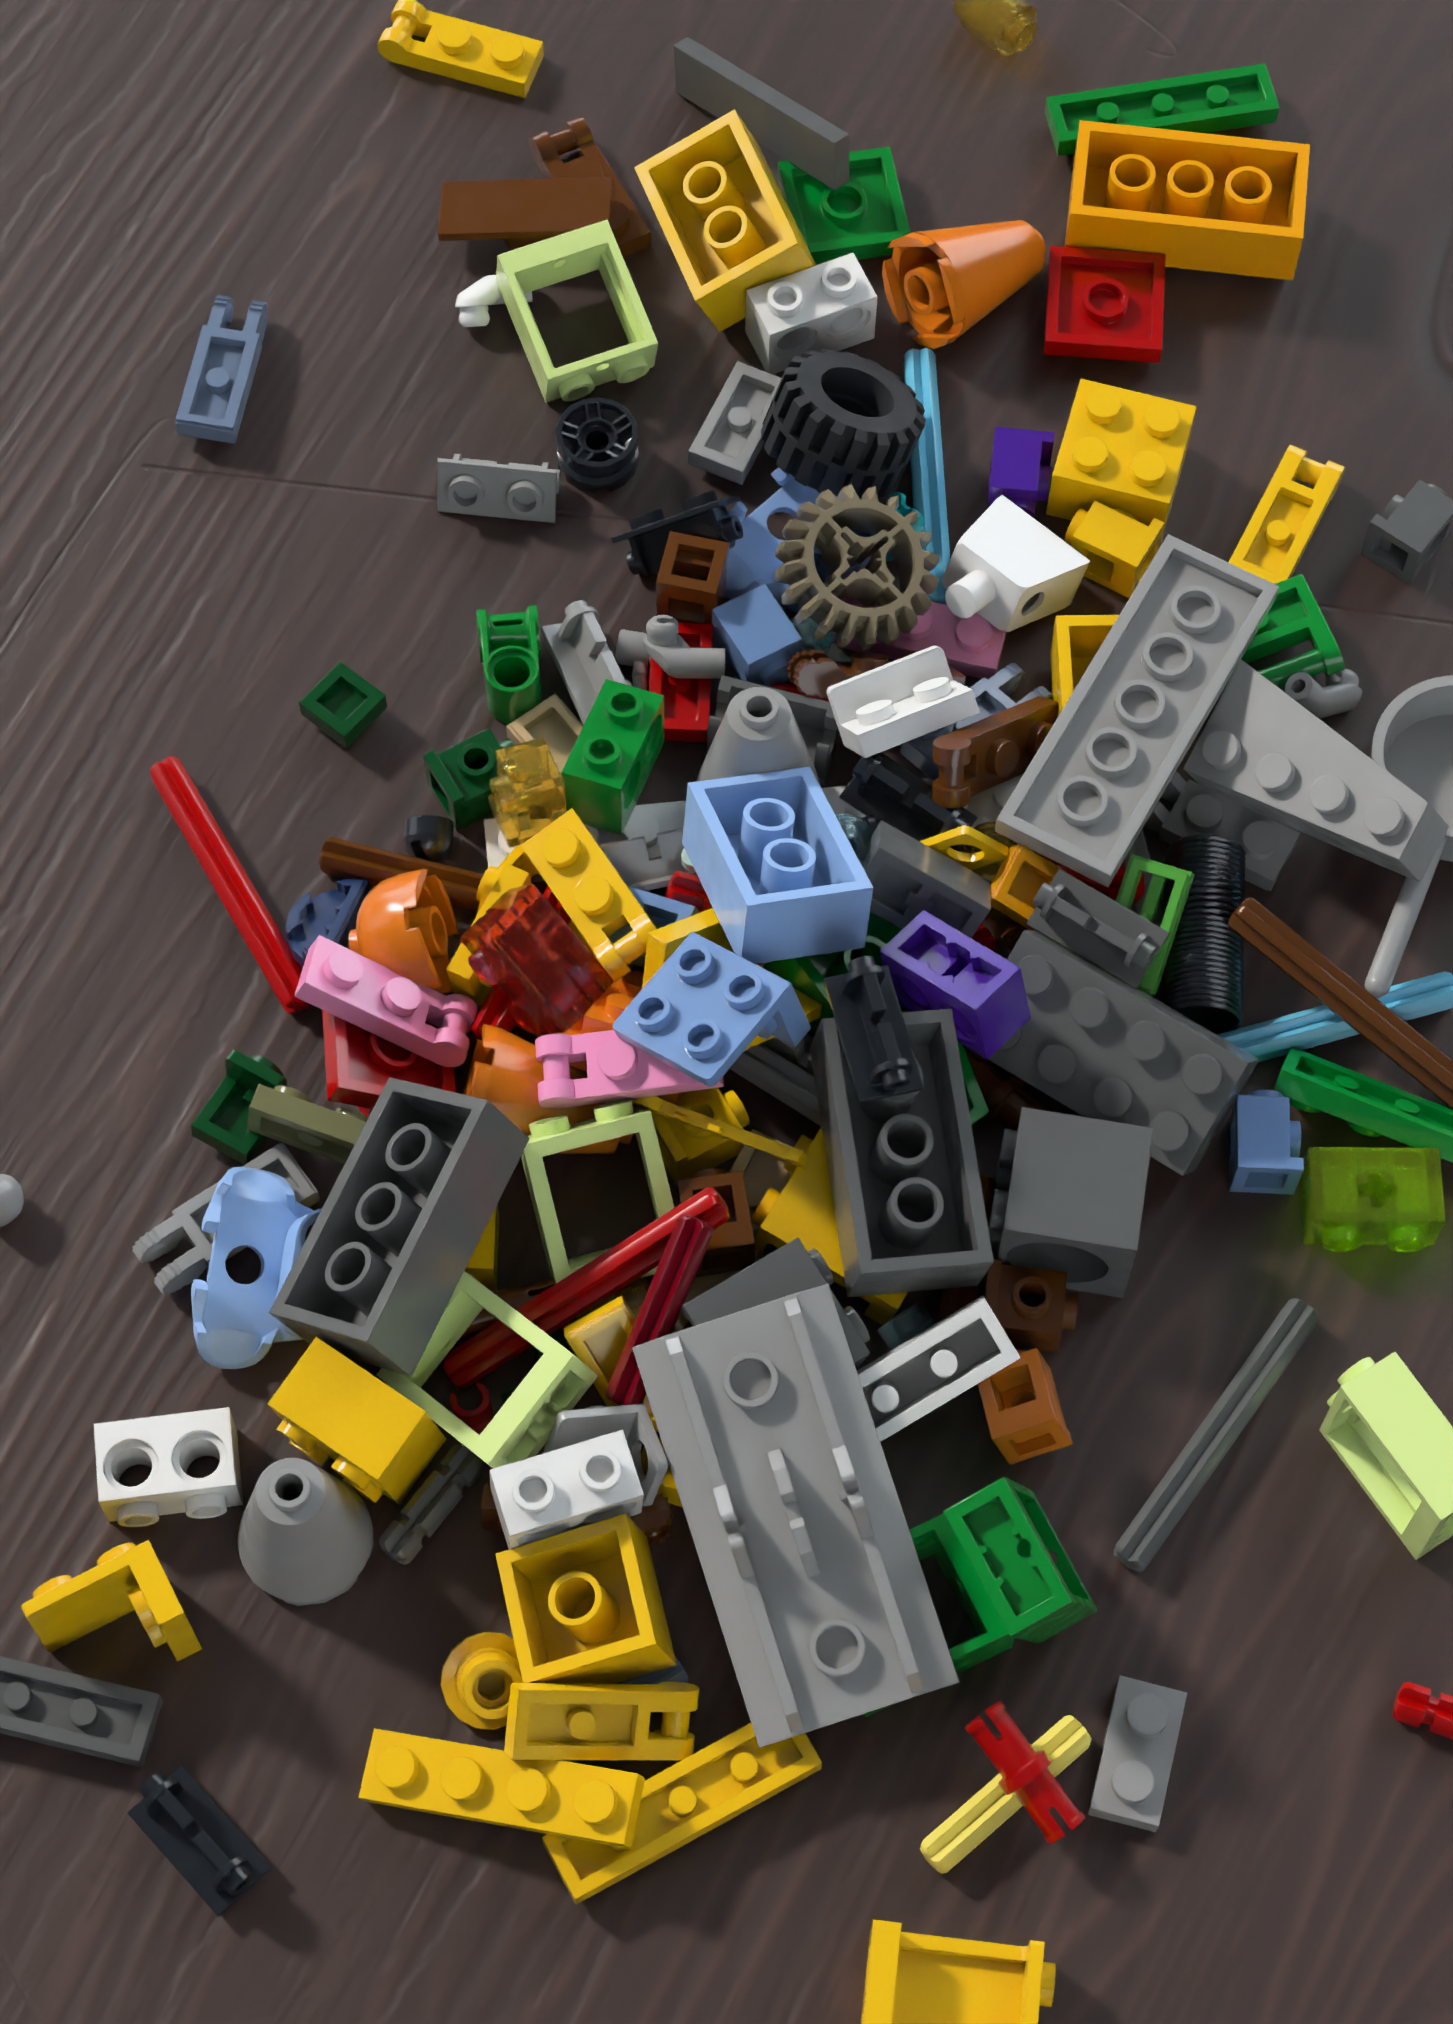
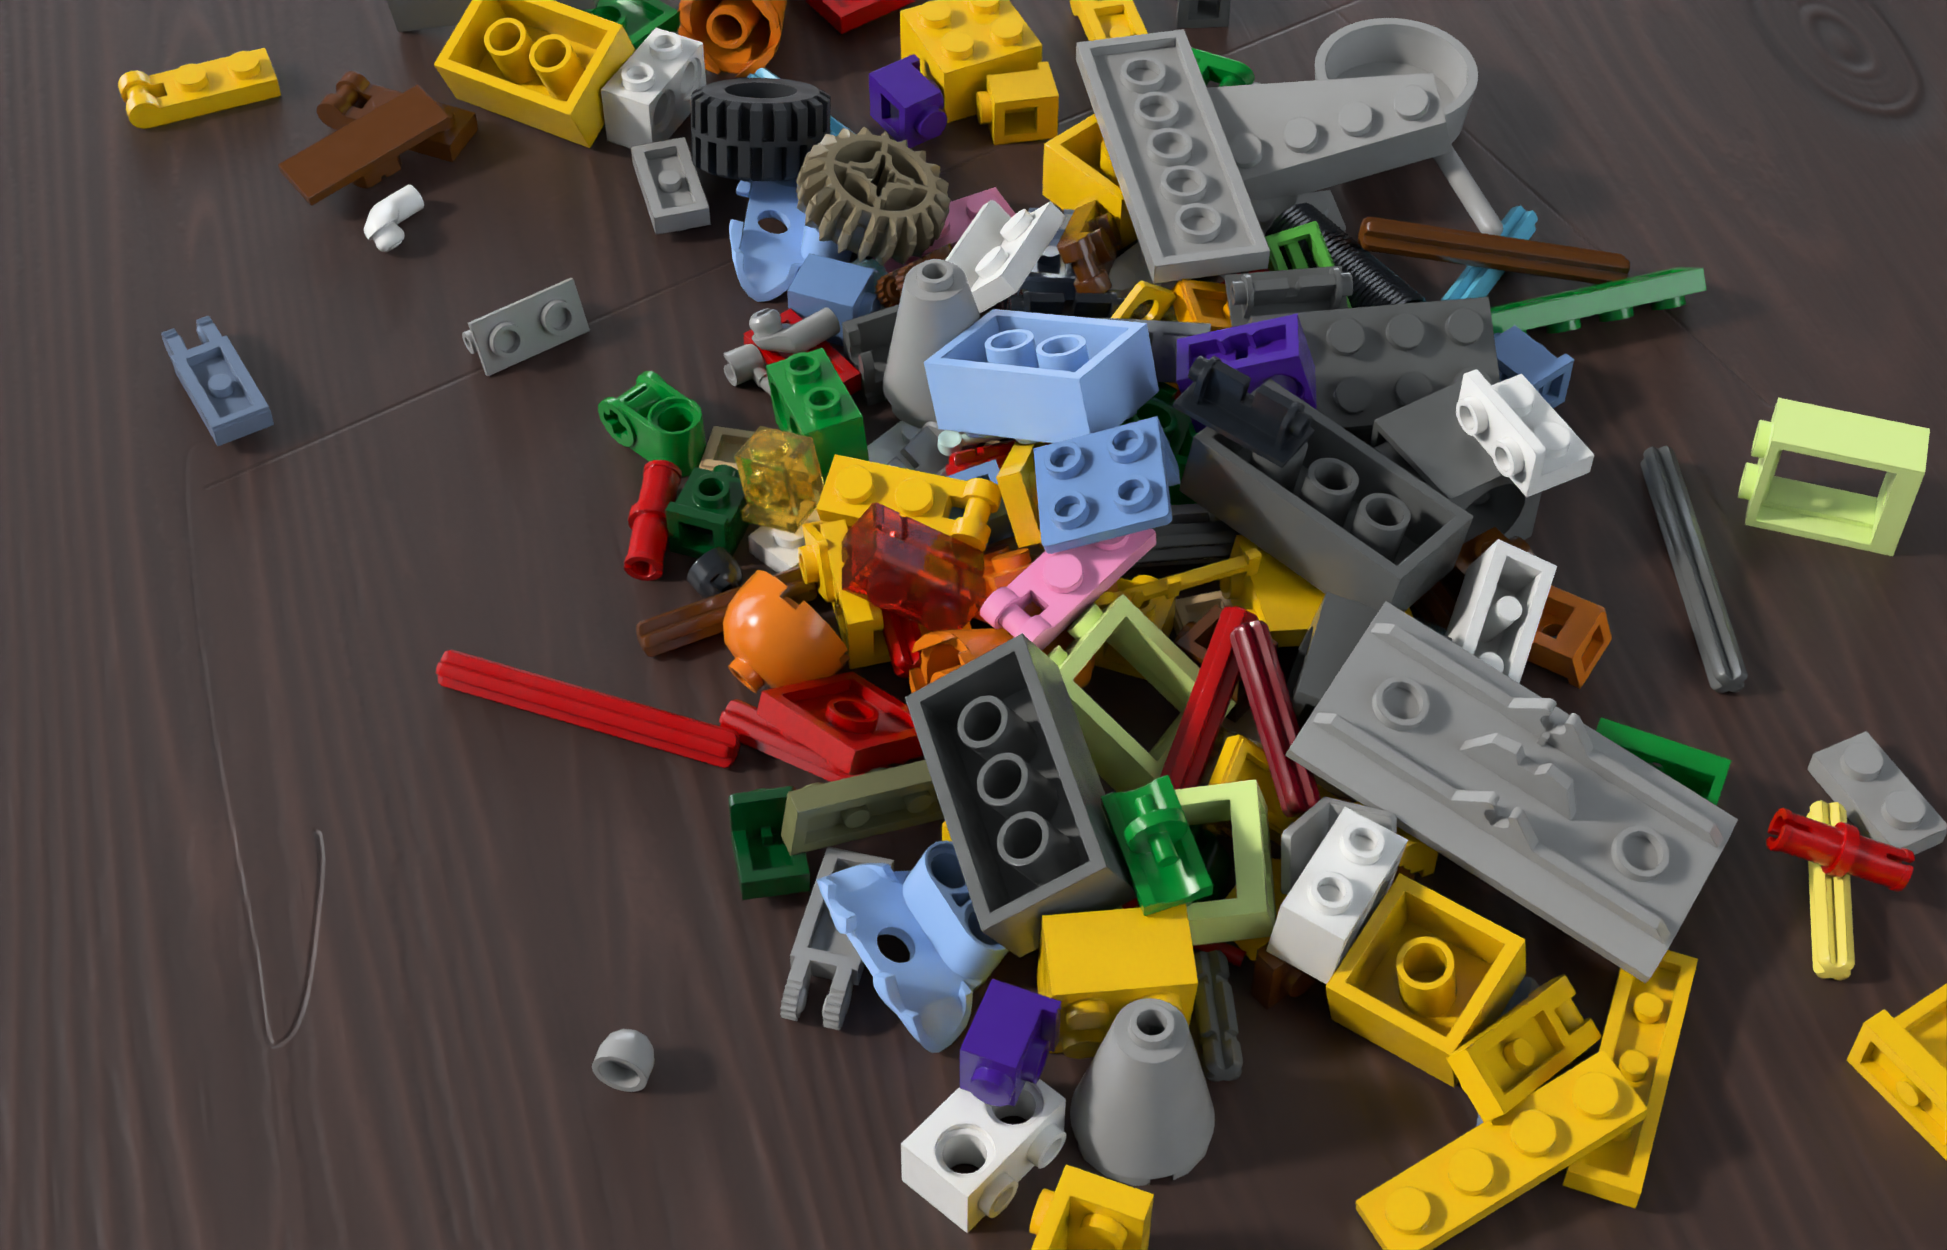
camera: 40 degrees left, 15 degrees down
(215, 1412) = (1008, 1043): none -> dark purple brick
(327, 915) = (698, 683): dark blue plate -> none
(343, 704) = (552, 532): dark green plate -> none
(386, 1003) = (820, 682): bright pink plate -> none
(407, 764) = (649, 520): none -> red pin
(439, 1349) = (1157, 846): none -> green hips
(479, 1679) = (1401, 1100): yellow piece -> none
(560, 260) = (468, 132): yellowish green window -> none
(582, 655) = (704, 379): light grey hinge -> none
(587, 427) = (577, 249): black wheel -> none
(691, 578) = (748, 281): reddish brown brick -> none
(702, 517) = (720, 247): black hinge -> none
(1009, 1548) = (1724, 711): green window -> none
(1011, 569) = (972, 147): white torso -> none
(1121, 1217) = (1521, 432): none -> white bracket
(1402, 1187) = (1626, 358): clear neon green brick -> none

